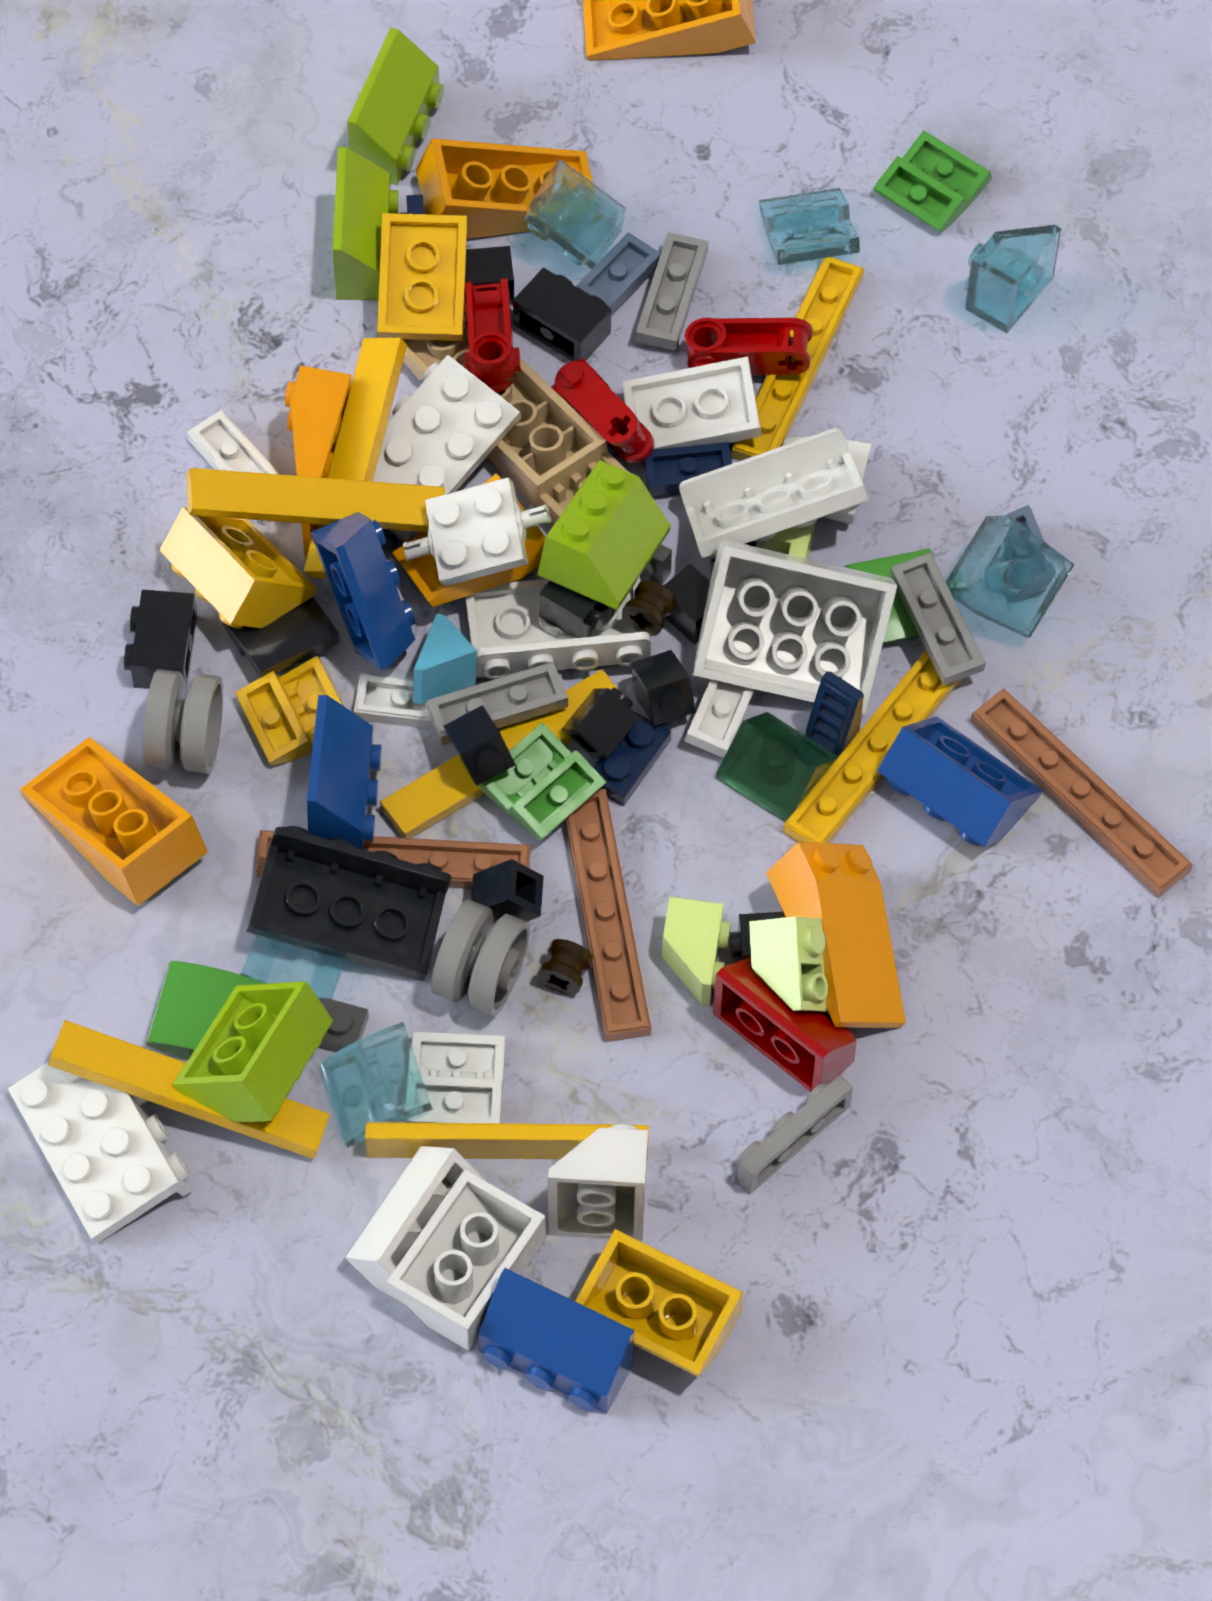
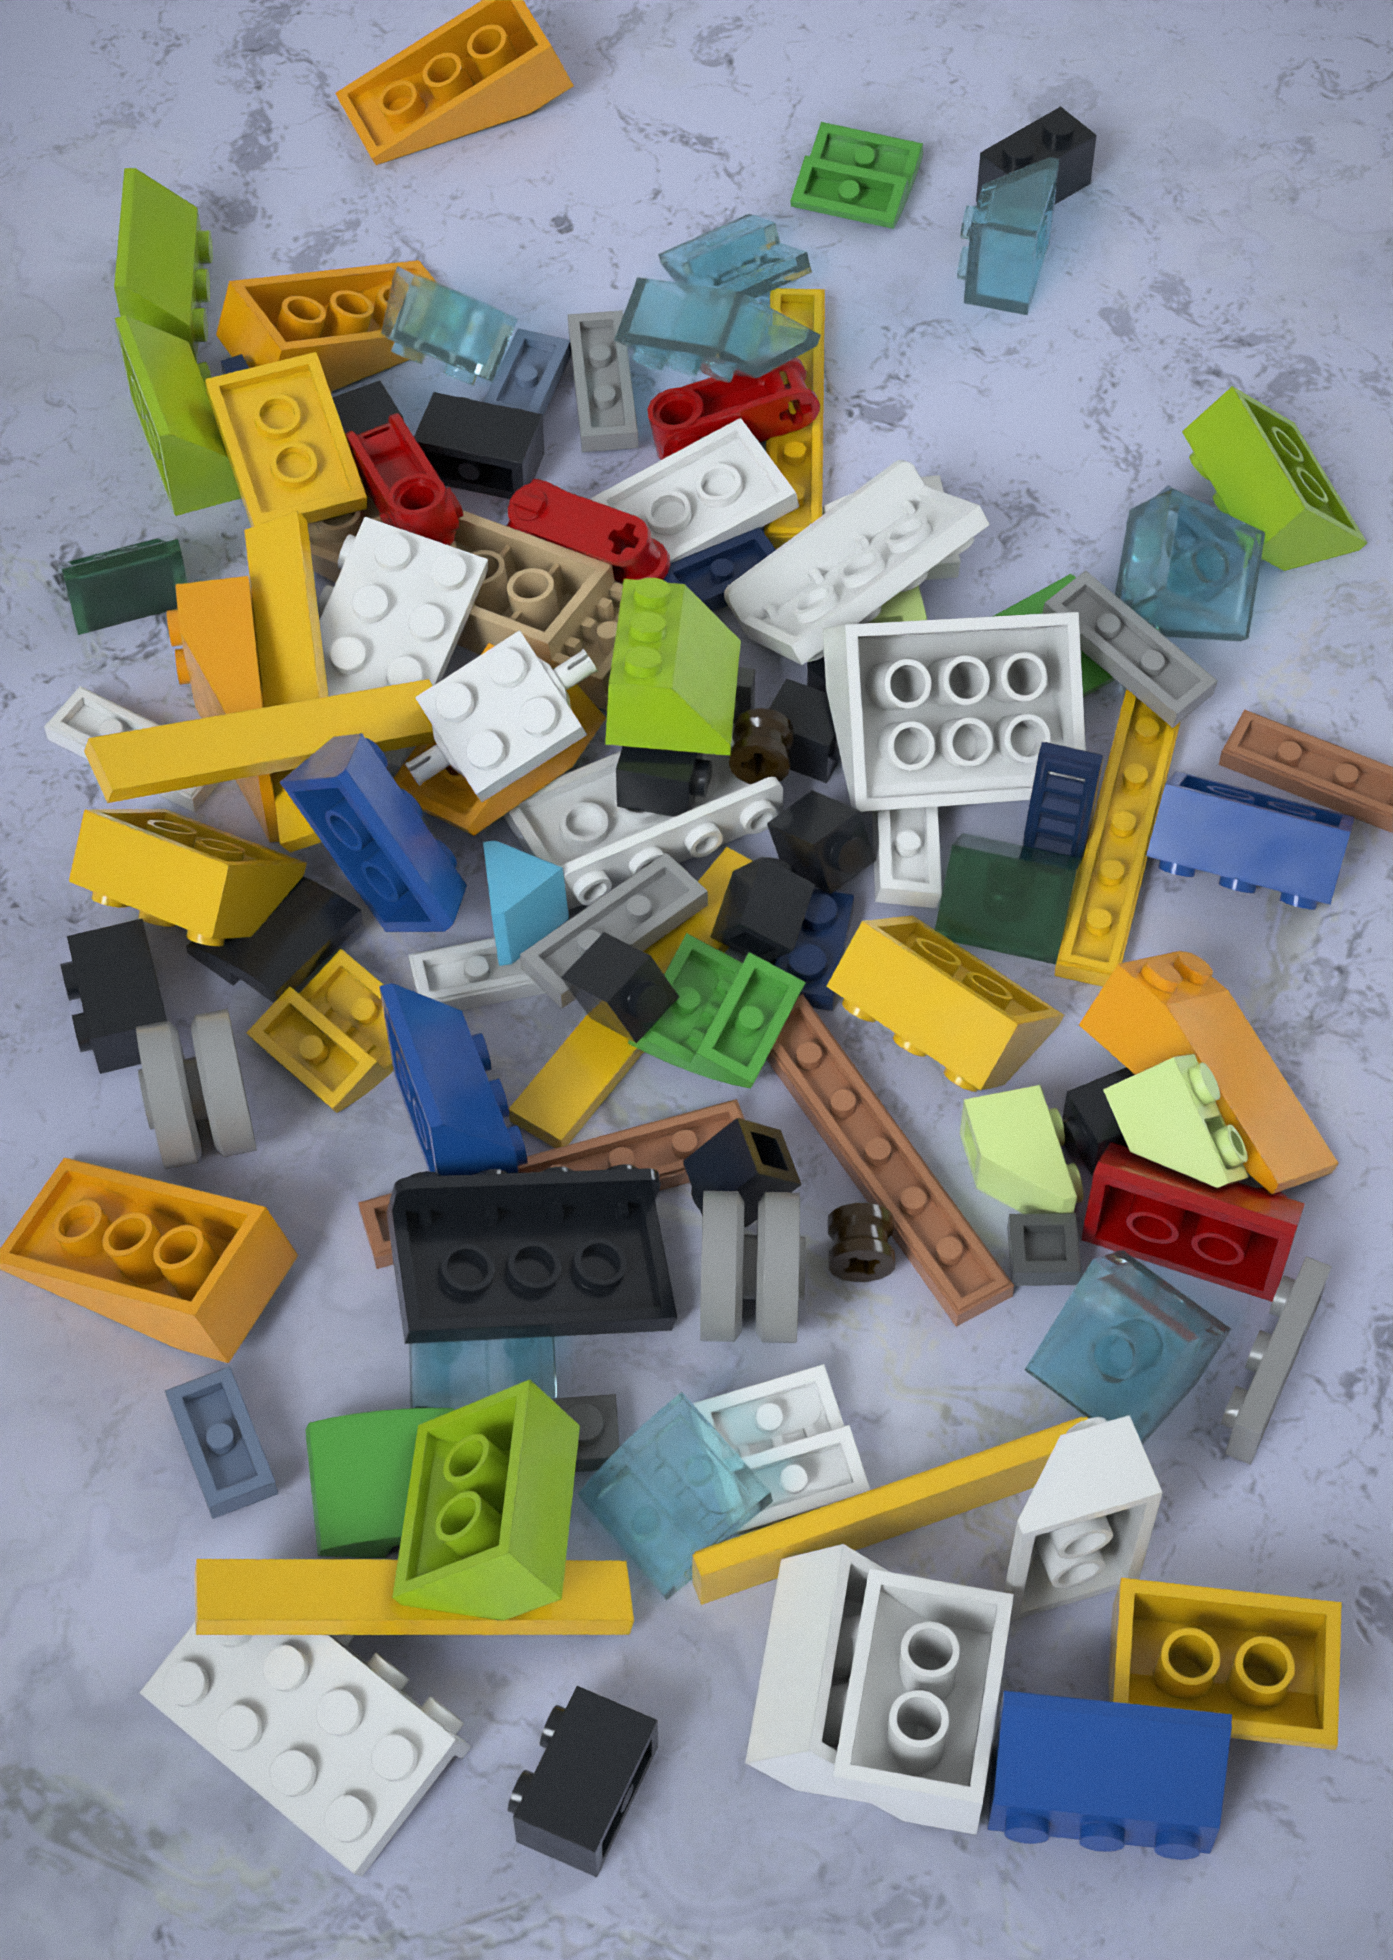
camera: 20 degrees left, 5 degrees down
(114, 954) = (221, 1442): none -> sand blue plate
(247, 1234) = (583, 1780): none -> black brick
(279, 340) = (123, 583): none -> slope
(681, 1012) = (1044, 1249): none -> dark grey plate
(695, 824) = (941, 1001): none -> yellow slope
(702, 1092) = (1126, 1345): none -> clear light blue slope
(752, 285) = (708, 331): none -> clear light blue slope
(1075, 208) = (1053, 136): none -> black brick
(1110, 525) = (1271, 481): none -> lime slope

